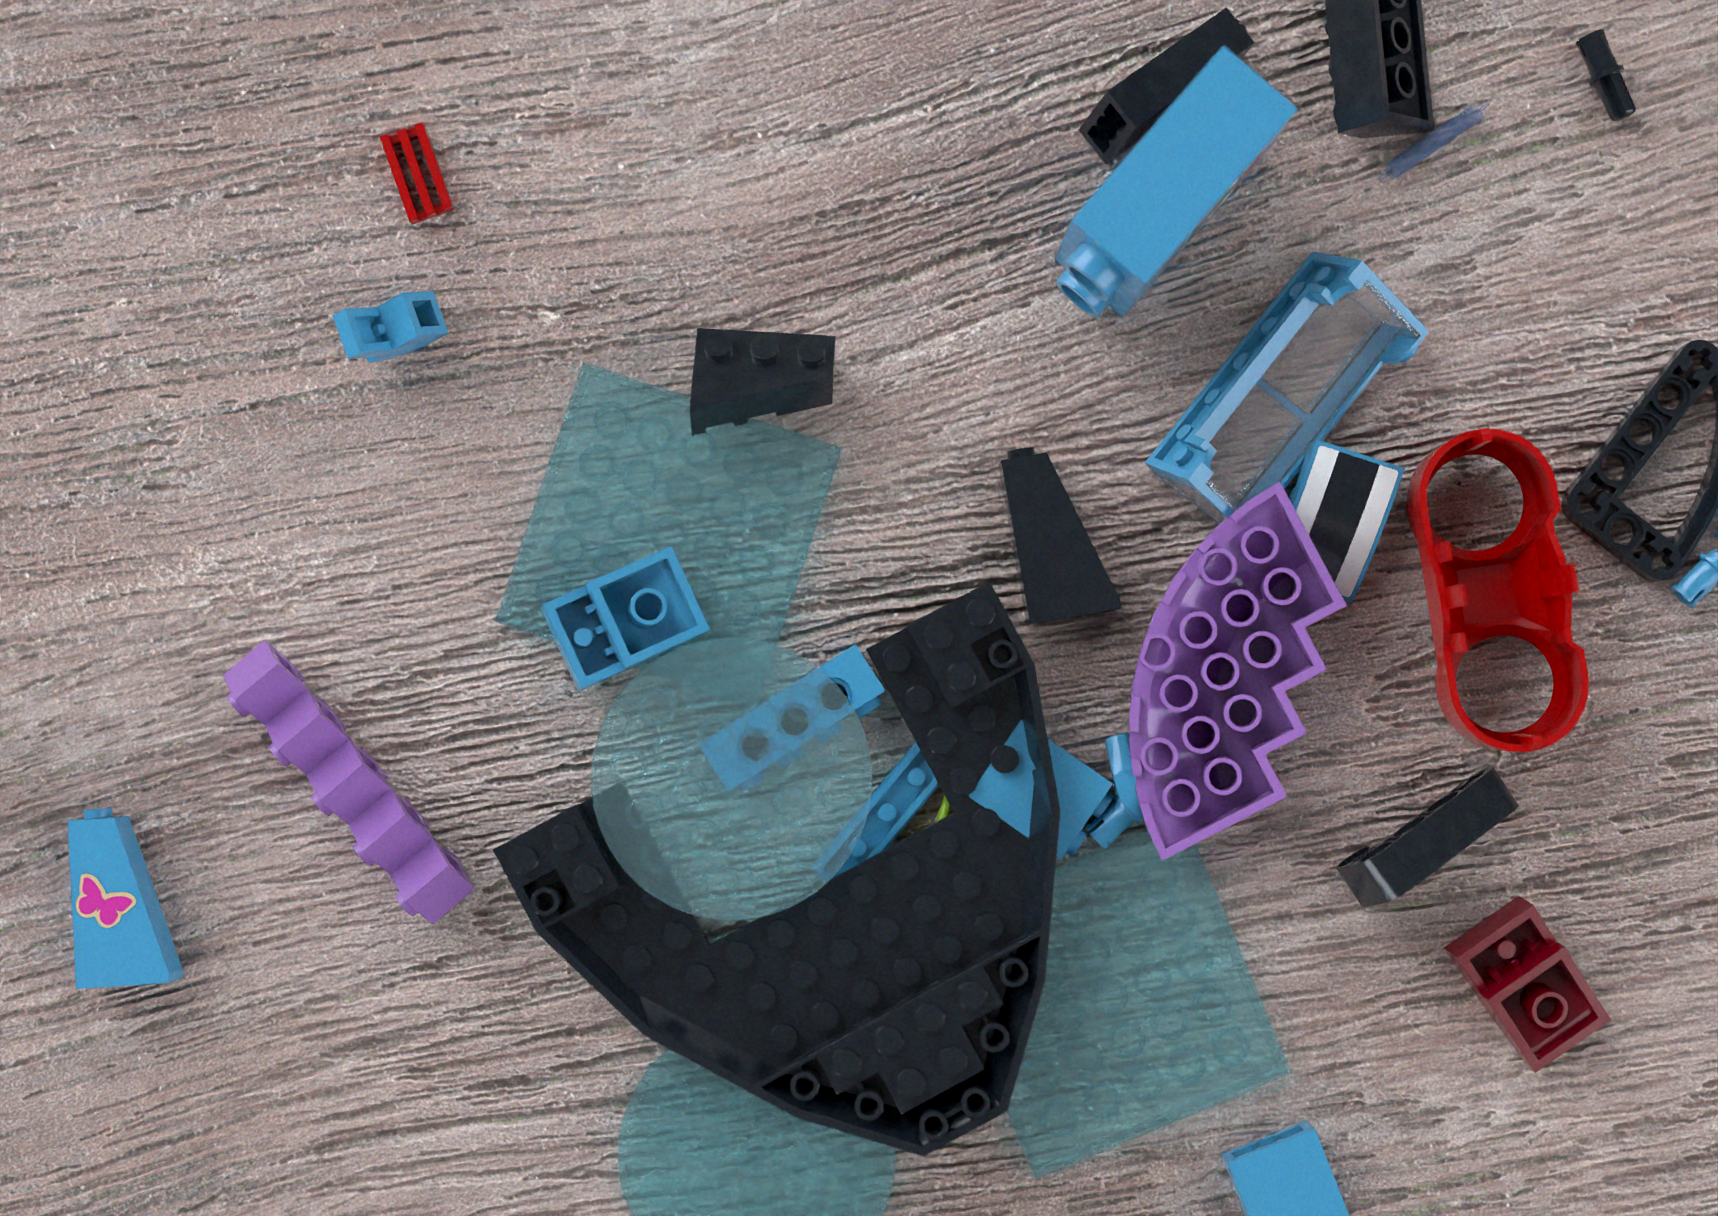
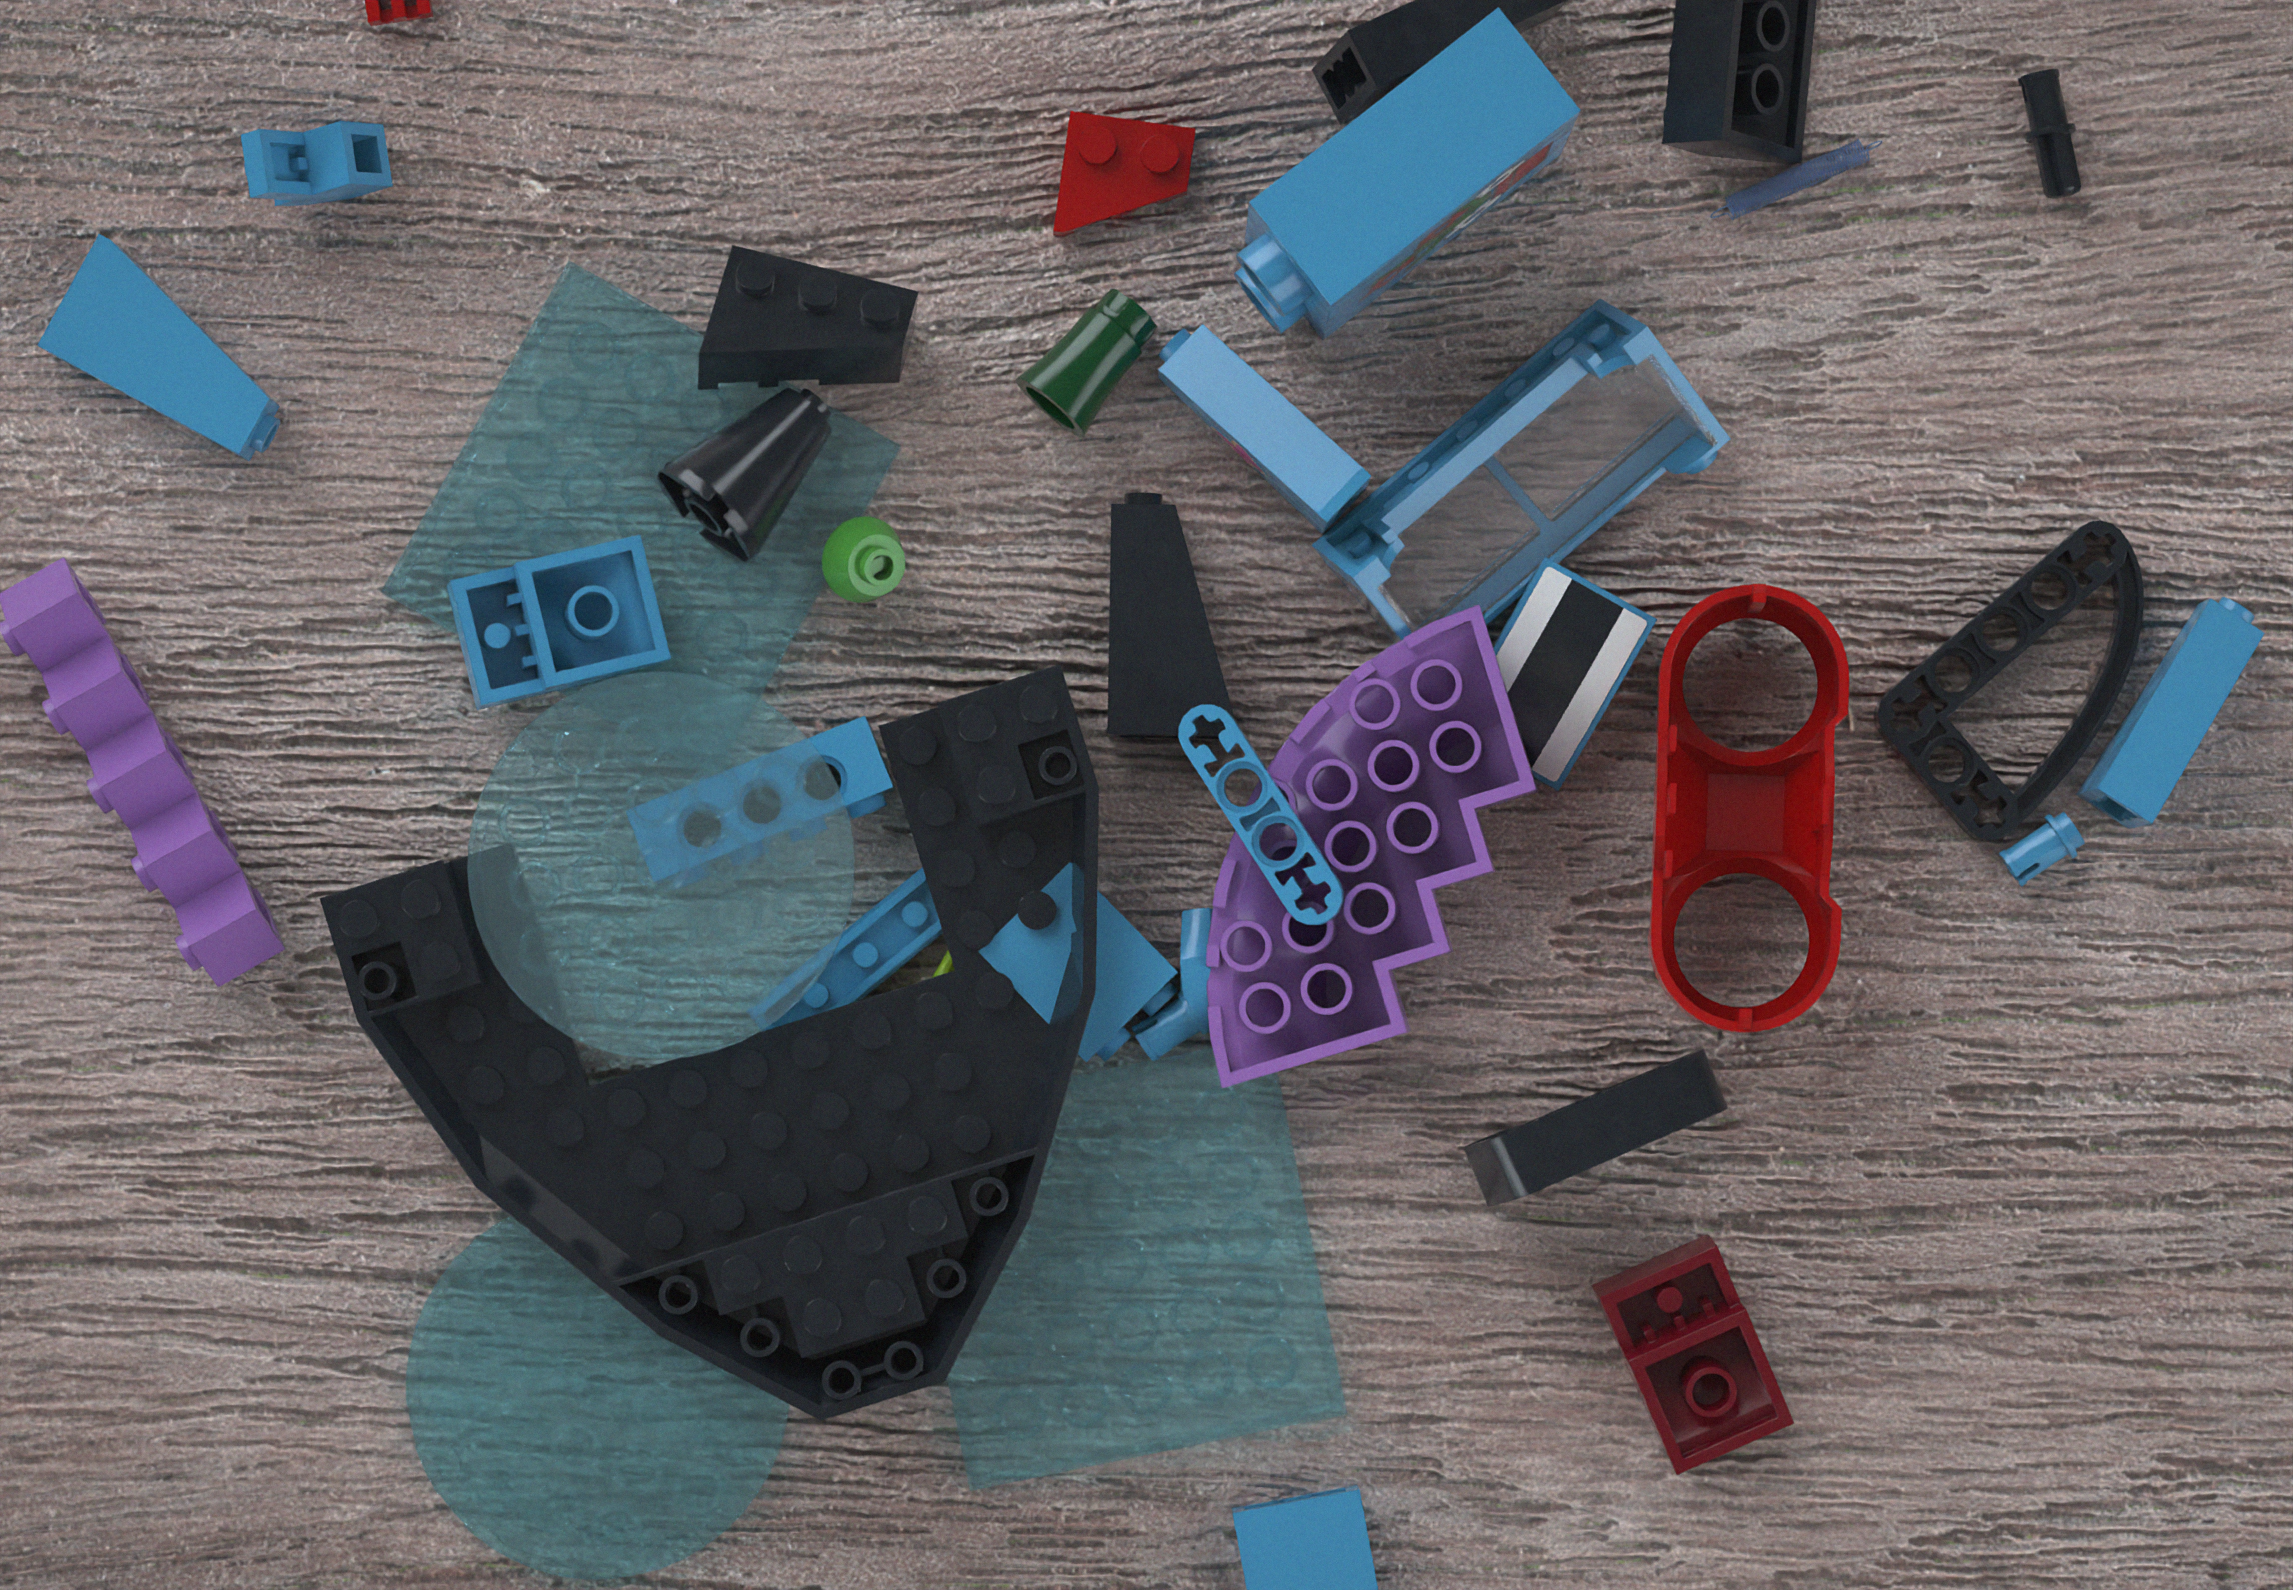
camera: 10 degrees right, 0 degrees up
(293, 478) = (146, 346): none -> dark azure slope
(739, 486) = (748, 471): none -> black cone
(832, 533) = (863, 559): none -> bright green cone
(957, 223) = (1118, 168): none -> red wing
(963, 364) = (1088, 362): none -> dark green plant
(1098, 386) = (1262, 427): none -> dark azure slope
(1158, 656) = (1267, 810): none -> dark azure beam

